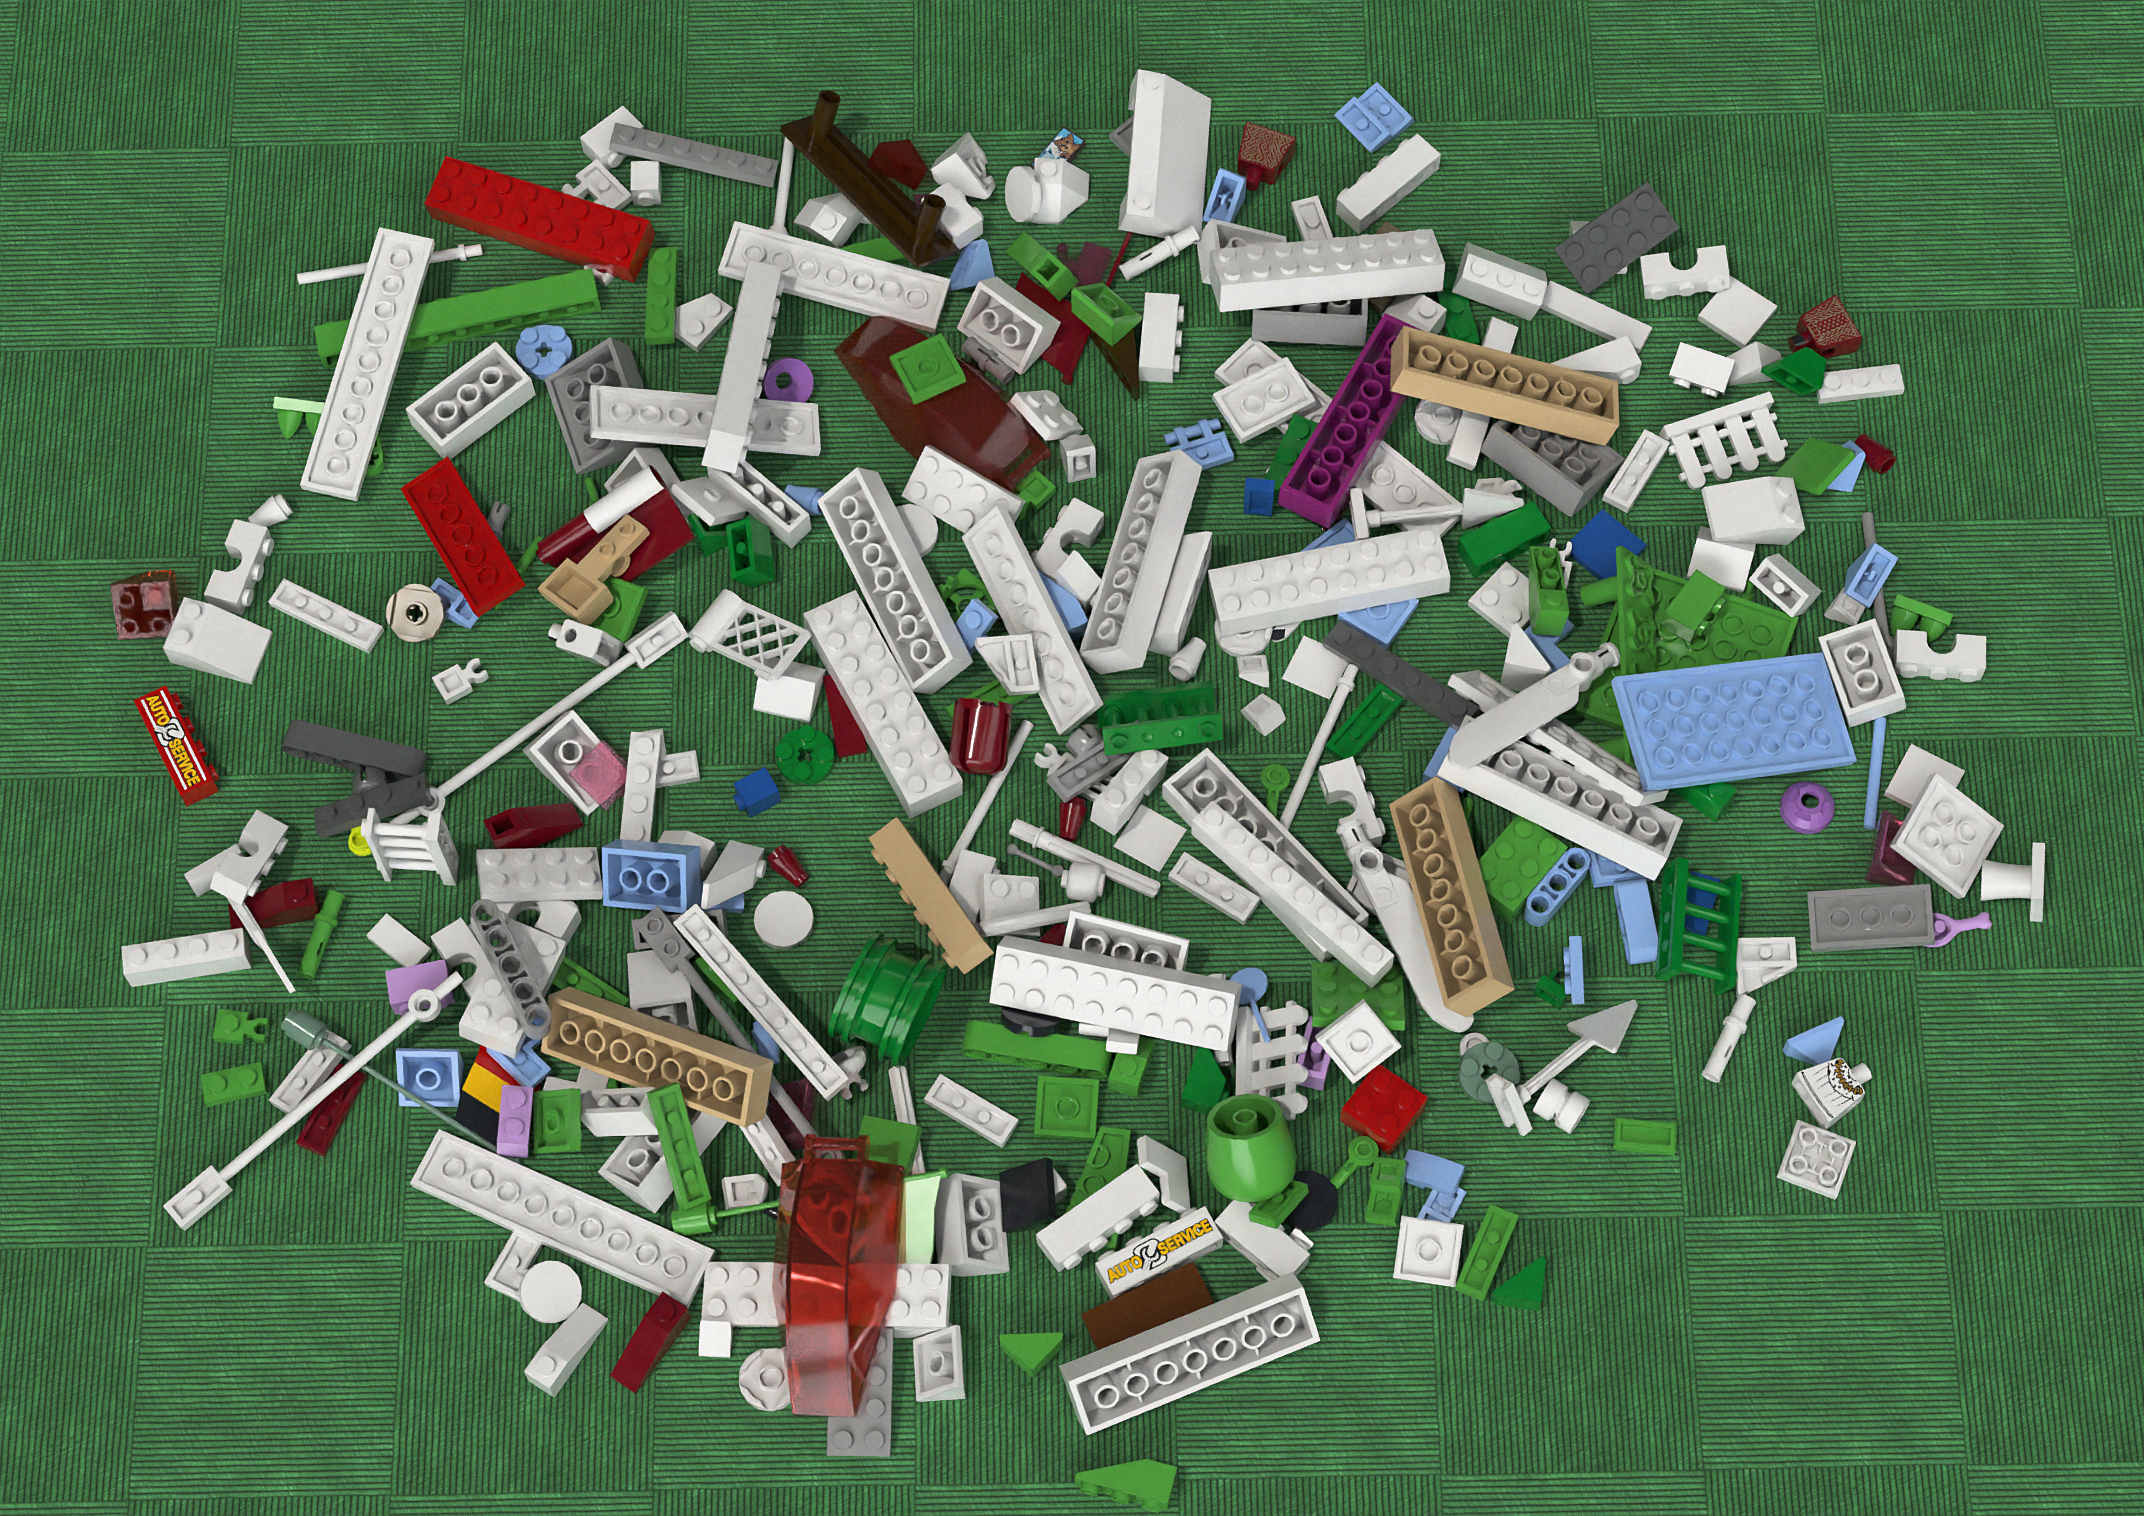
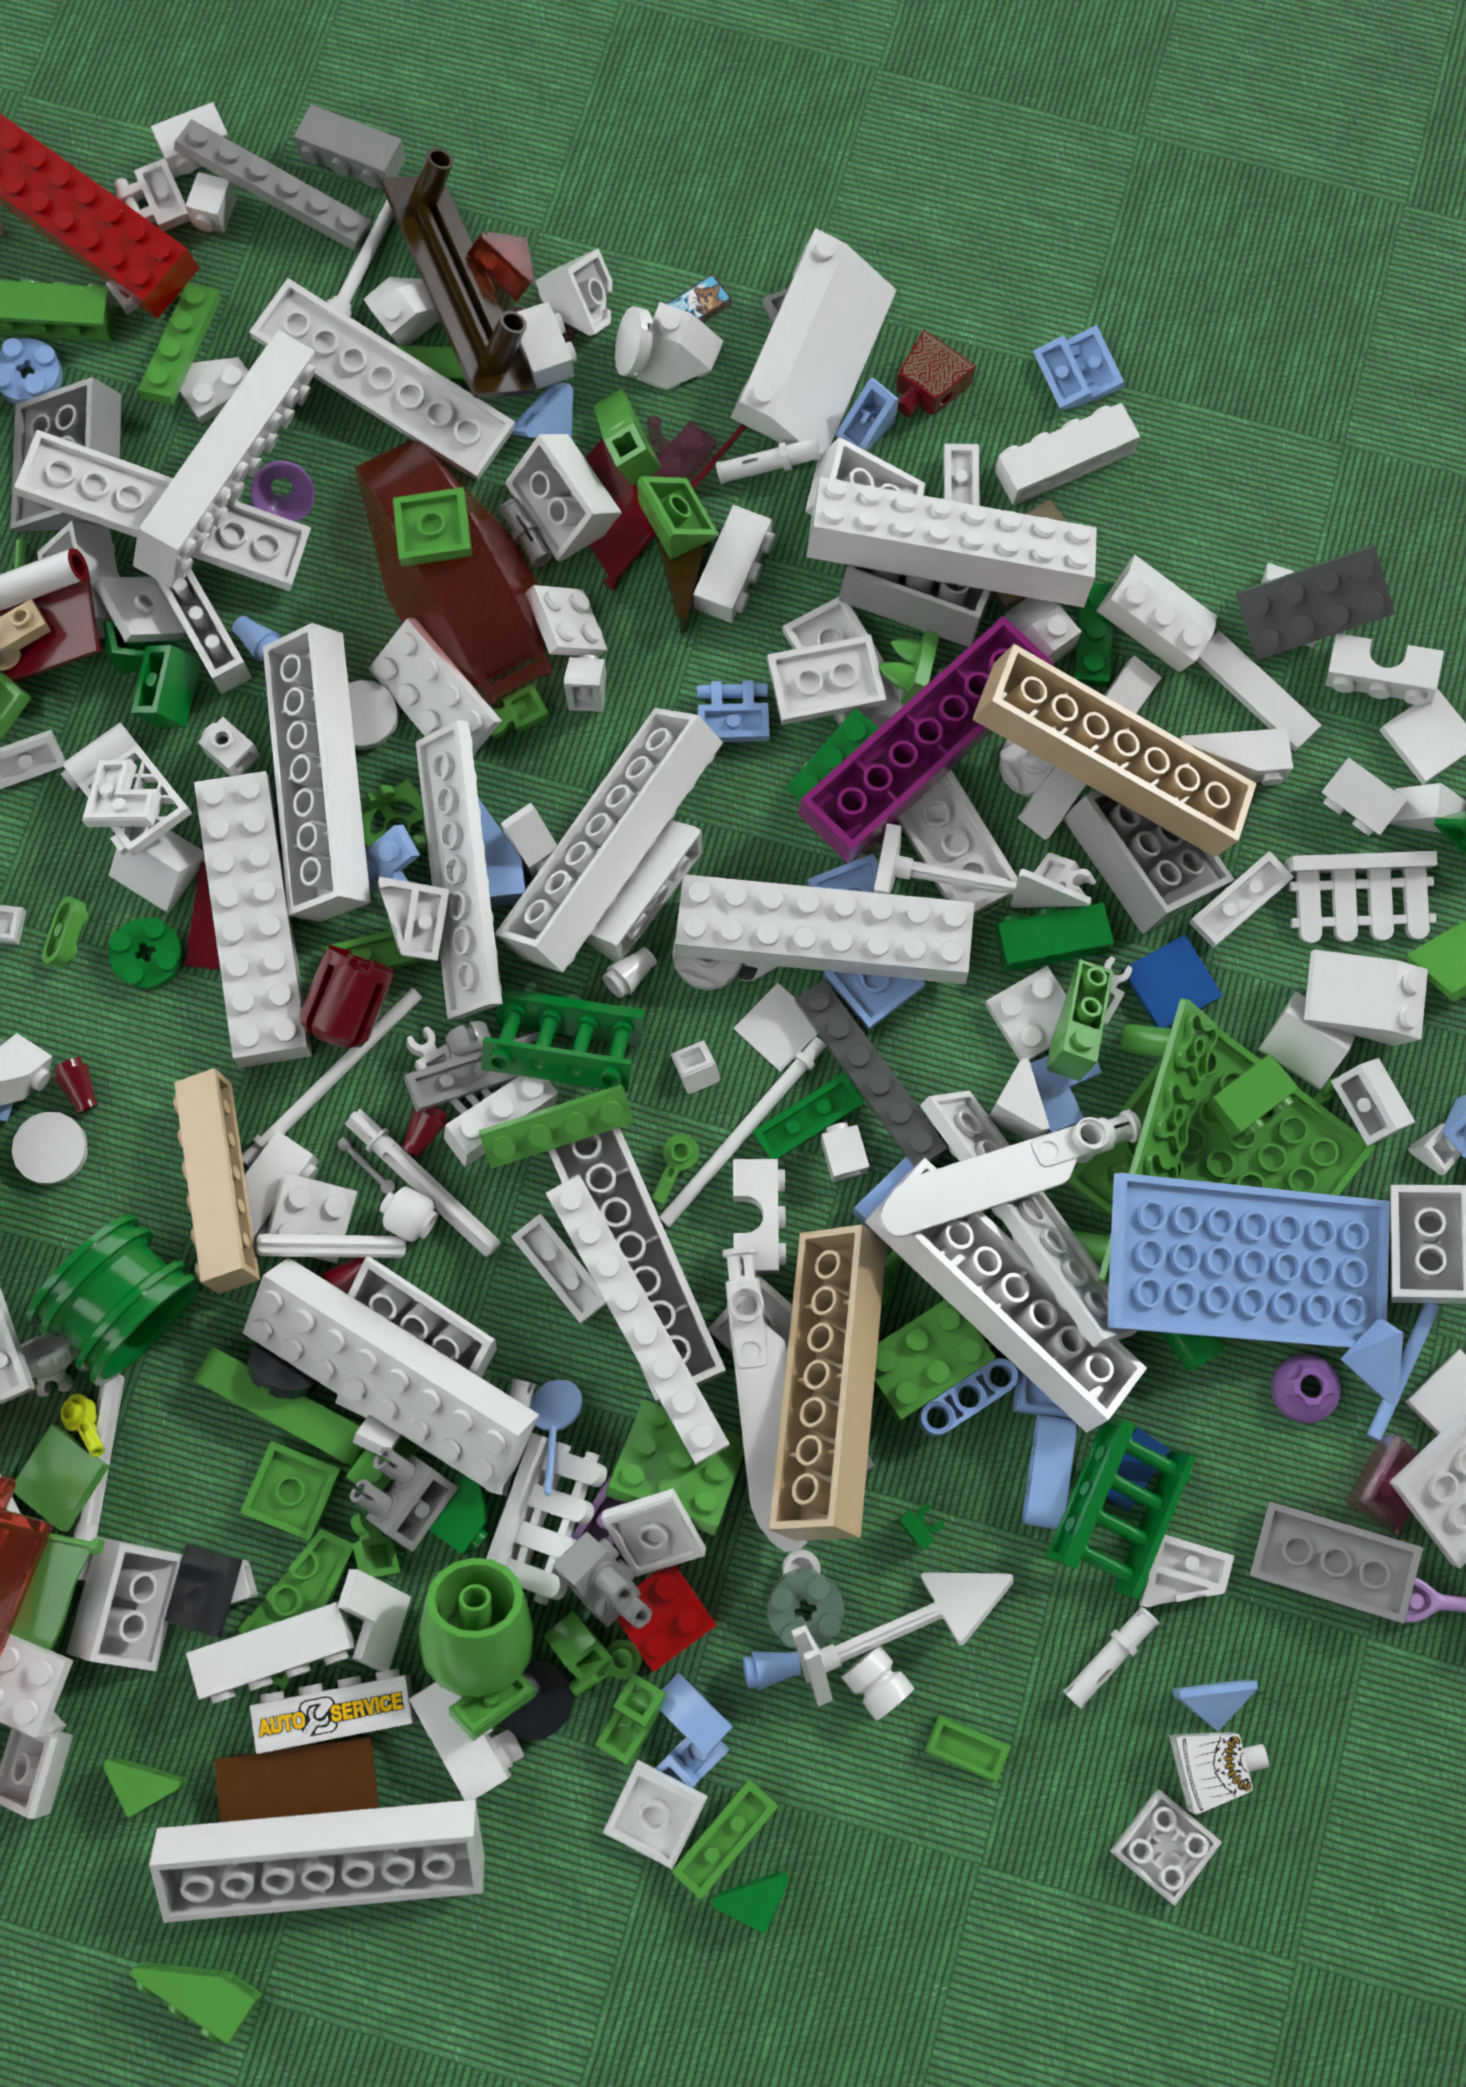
camera: 15 degrees right, 10 degrees up
(736, 756) = (64, 931): none -> bright green plate
(741, 110) = (348, 147): none -> light grey brick
(749, 647) = (114, 802): none -> white tile
(756, 793) = (71, 982): blue brick -> none
(814, 584) = (228, 747): none -> white brick
(882, 1103) = (80, 1416): none -> neon yellow plate
(971, 1111) = (179, 1457): white plate -> none
(1076, 524) = (554, 764): white arch -> none
(1143, 1125) = (373, 1552): none -> bright green plate
(1150, 838) = (510, 1186): white sticker -> none
(1164, 1081) = (409, 1501): none -> light grey brick
(1179, 777) = (556, 1126): none -> bright green plate
(1254, 669) = (702, 1008): white slope -> none
(1259, 497) = (778, 798): blue tile -> none
(1327, 1148) = (577, 1646): none -> bright green brick
(1330, 370) = (920, 659): none -> bright green tile
(1332, 1086) = (602, 1582): none -> light grey brick
(1400, 740) = (844, 1152): none -> white brick
(1476, 1123) = (769, 1668): none -> light blue cone
(1574, 970) = (953, 1507): light blue plate -> none
(1852, 766) = (1378, 1359): none -> light blue slope

